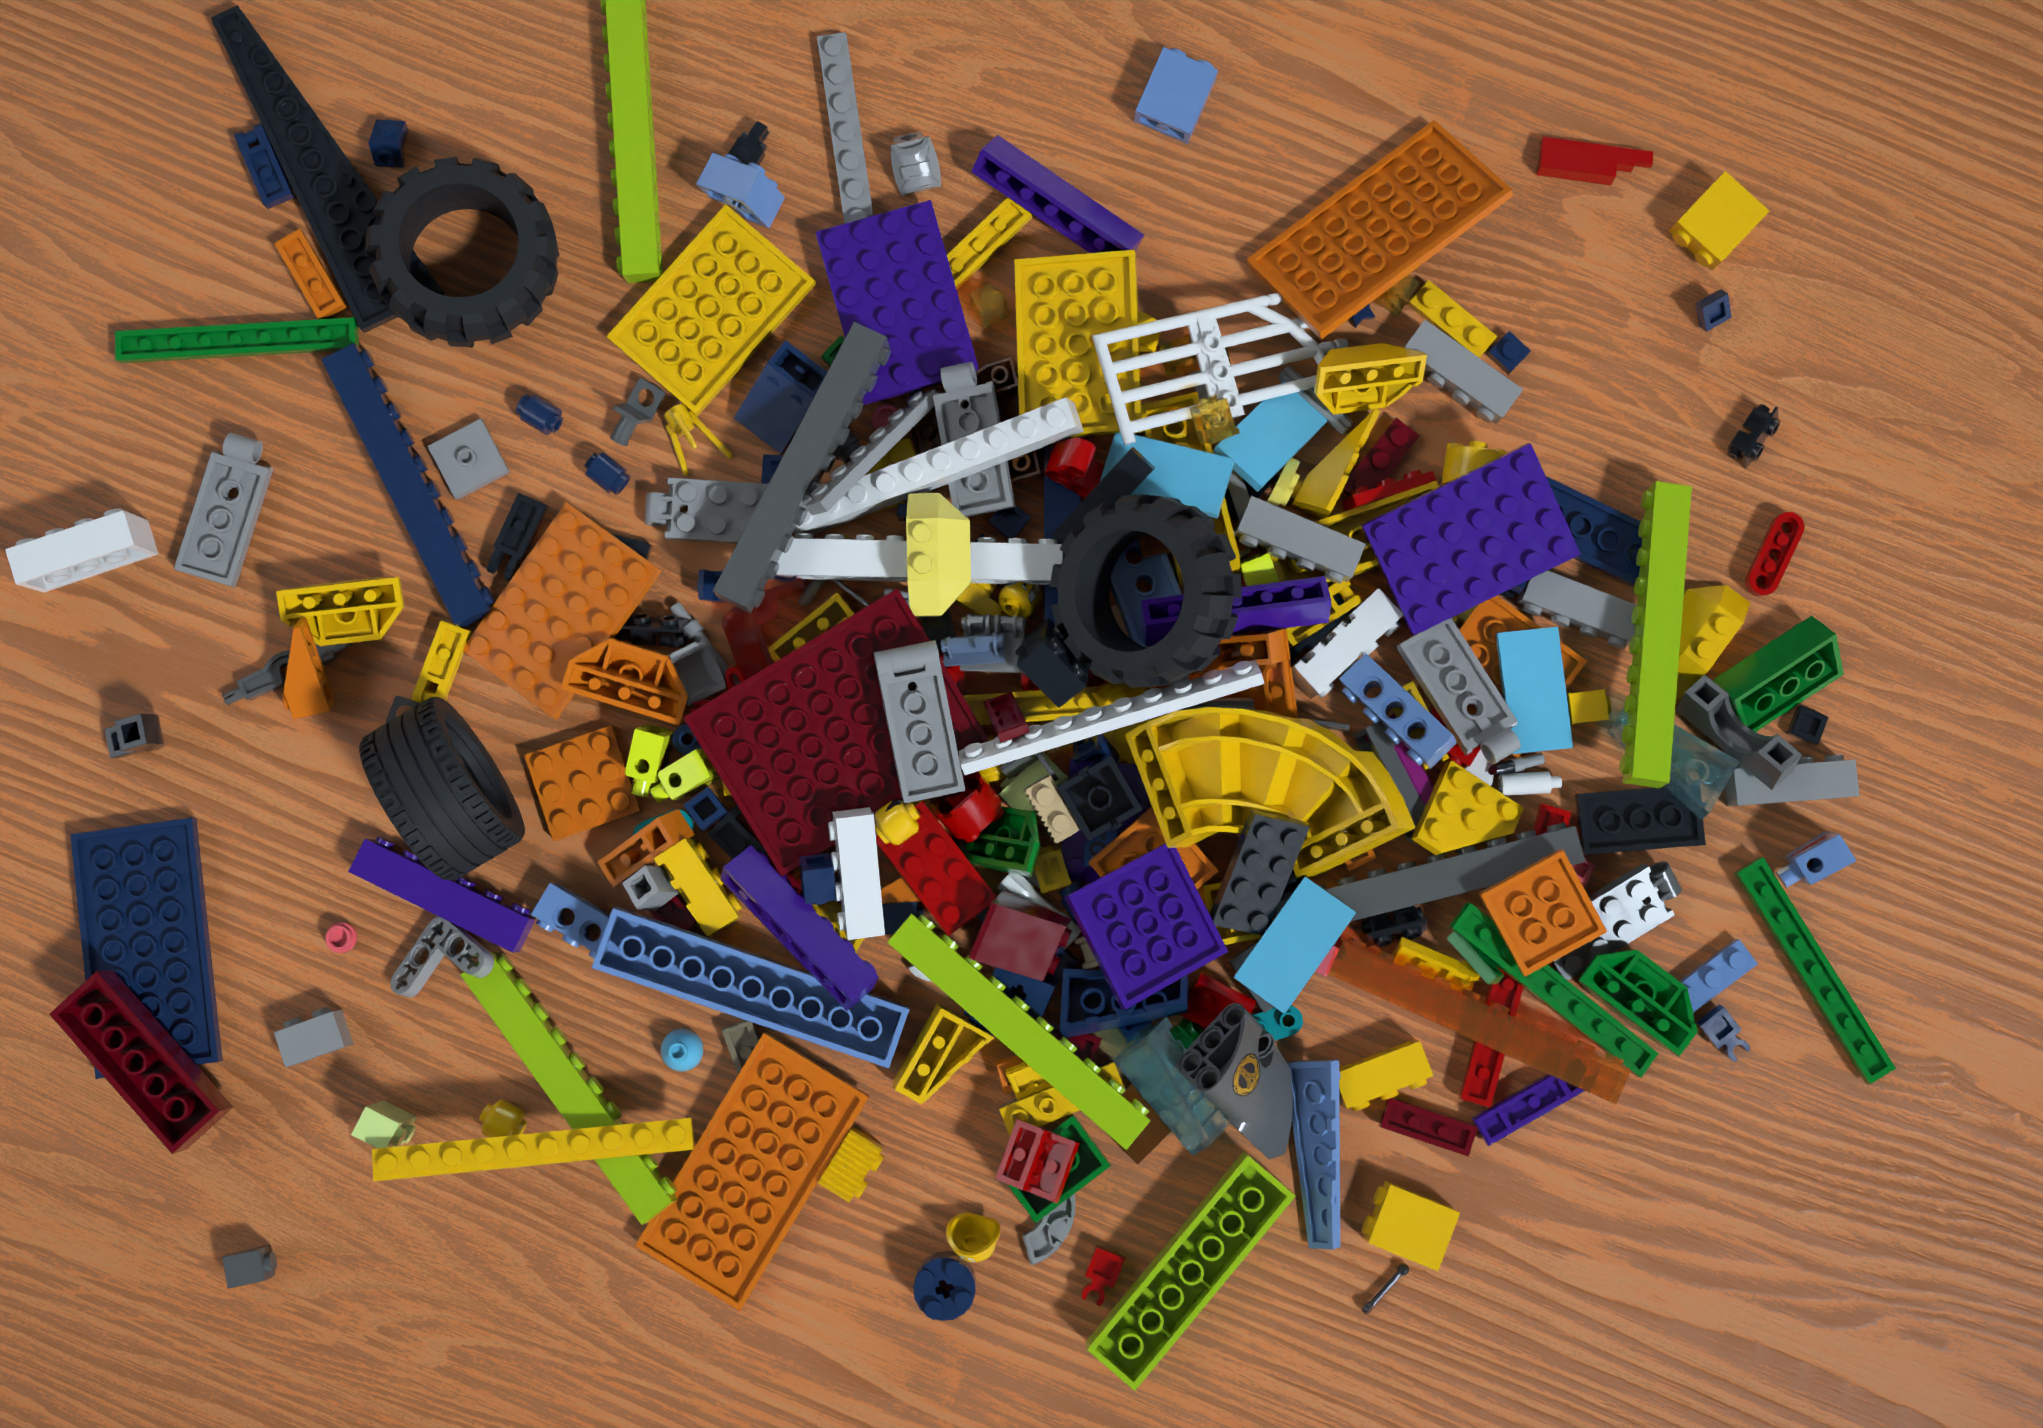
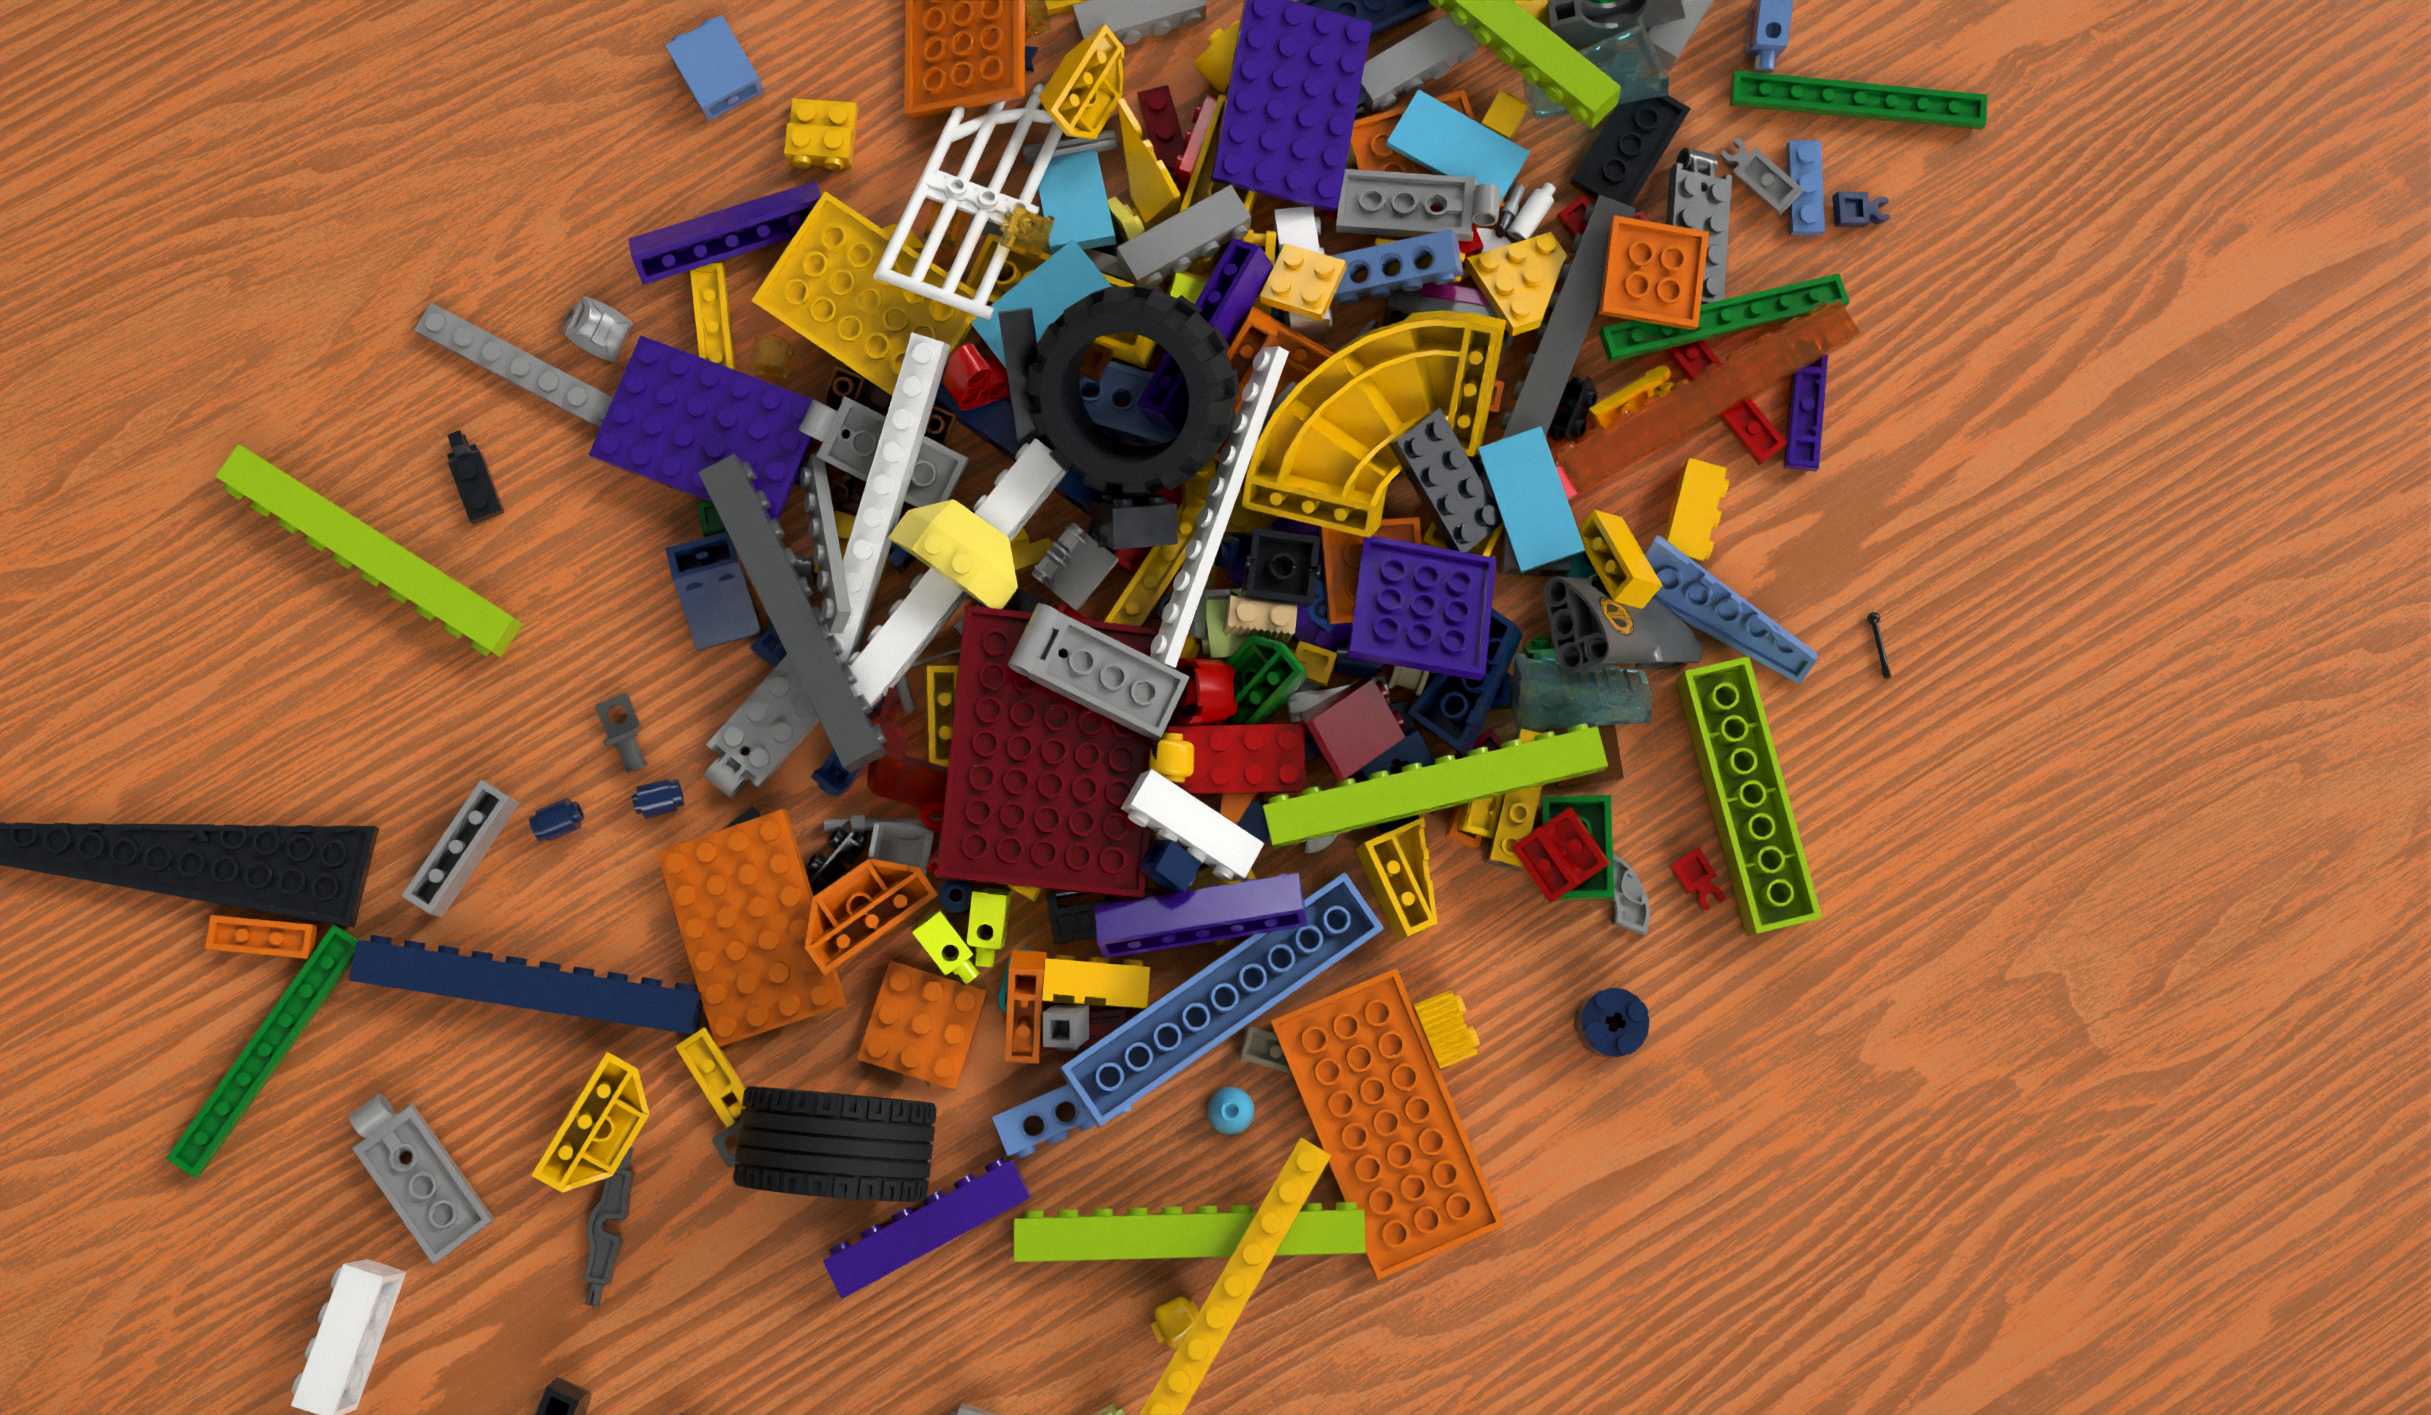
camera: 60 degrees left, 5 degrees down
(264, 167) = (126, 907): dark blue plate -> none
(306, 682) = (638, 1213): orange slope -> none
(341, 937) = (896, 1354): coral plate -> none
(387, 143) = (198, 777): dark blue bracket -> none
(445, 945) = (975, 1258): light grey beam -> none
(452, 188) = (304, 725): black tyre -> none
(469, 364) = (461, 849): none -> light grey brick
(469, 459) = (546, 915): light grey plate -> none
(517, 534) = (650, 919): black hinge -> none
(681, 422) = (665, 698): yellow plant -> none
(706, 809) = (1030, 926): dark blue brick -> none
(711, 310) = (584, 599): yellow plate -> none
(741, 187) = (496, 487): medium blue brick -> none
(881, 415) = (798, 519): coral plate -> none
(972, 1236) = (1586, 965): yellow helmet -> none
(973, 649) = (1070, 582): sand blue hinge -> none
(1006, 717) = (1150, 597): dark red plate -> none
(1010, 521) = (977, 477): dark blue plate -> none
(1020, 599) = (1052, 515): yellow head -> none
(1185, 210) = (821, 134): none -> yellow plate
(1210, 998) = (1527, 607): red bracket -> none
(1297, 1043) = (1618, 559): none -> yellow brick
(1332, 653) = (1303, 282): none -> yellow plate
(1410, 1225) = (1840, 582): yellow brick -> none
(1428, 1126) = (1766, 507): dark red plate -> none
(1480, 963) = (1650, 360): green tile -> none
(1643, 997) = (1784, 250): green wedge -> none
(1692, 940) = (1763, 177): none -> light grey plate

